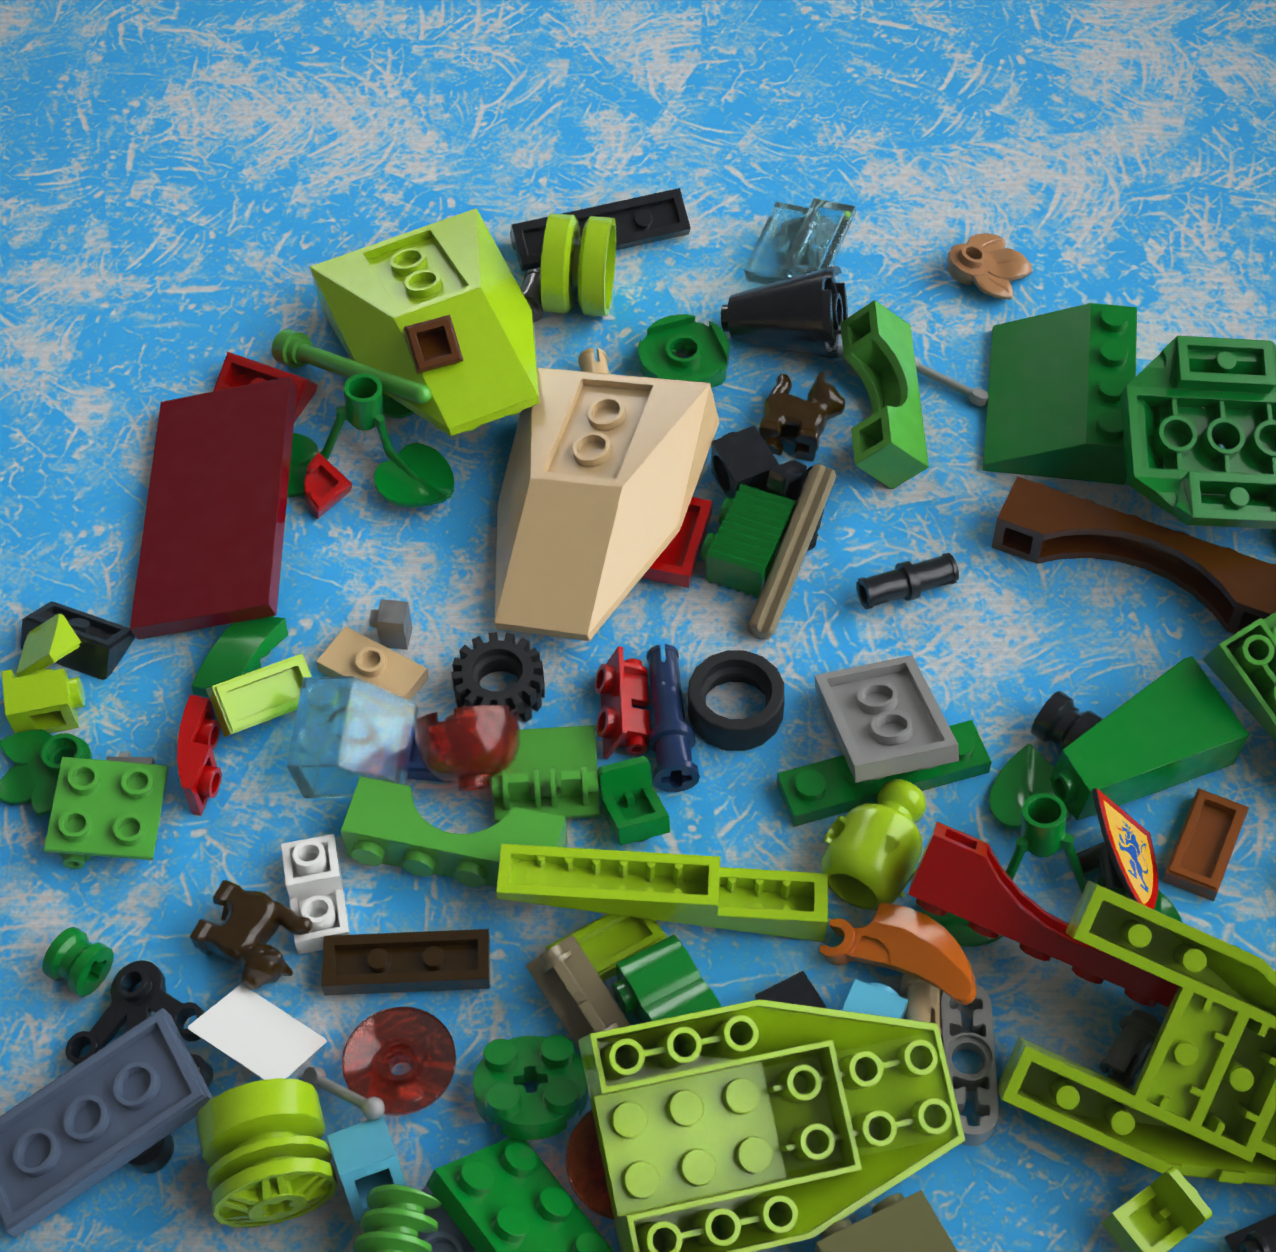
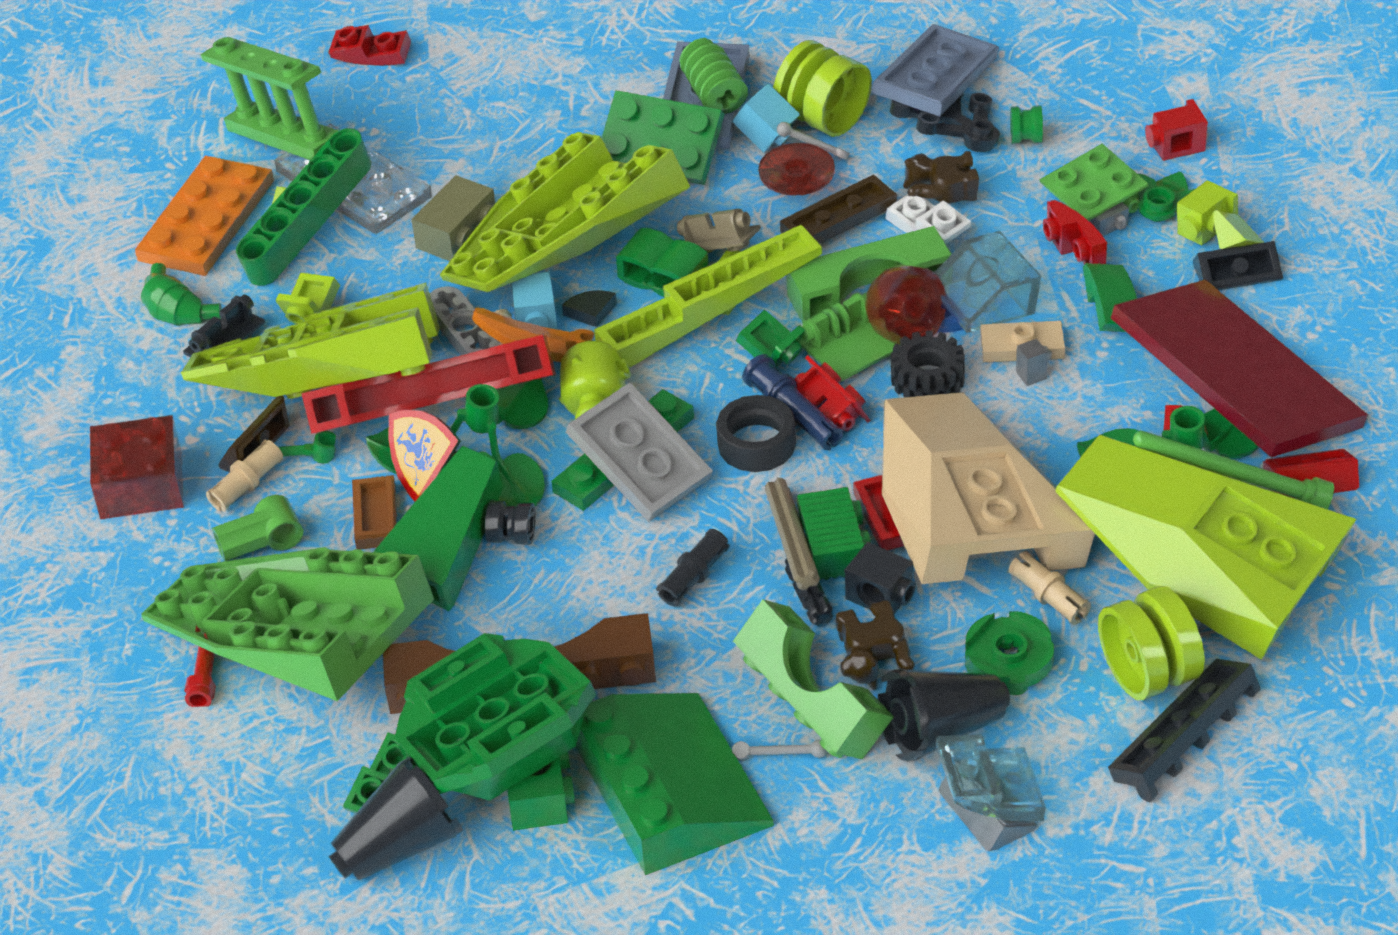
camera: 150 degrees right, 10 degrees down
(257, 1034) = (884, 137): white sticker -> none
(259, 695) = (1067, 277): lime tile -> none
(433, 344) = (1171, 467): reddish brown slope -> none
(527, 1059) = (717, 175): green plate -> none
(787, 479) = (833, 569): black tile -> none
(988, 265) = (811, 877): medium nougat plate -> none

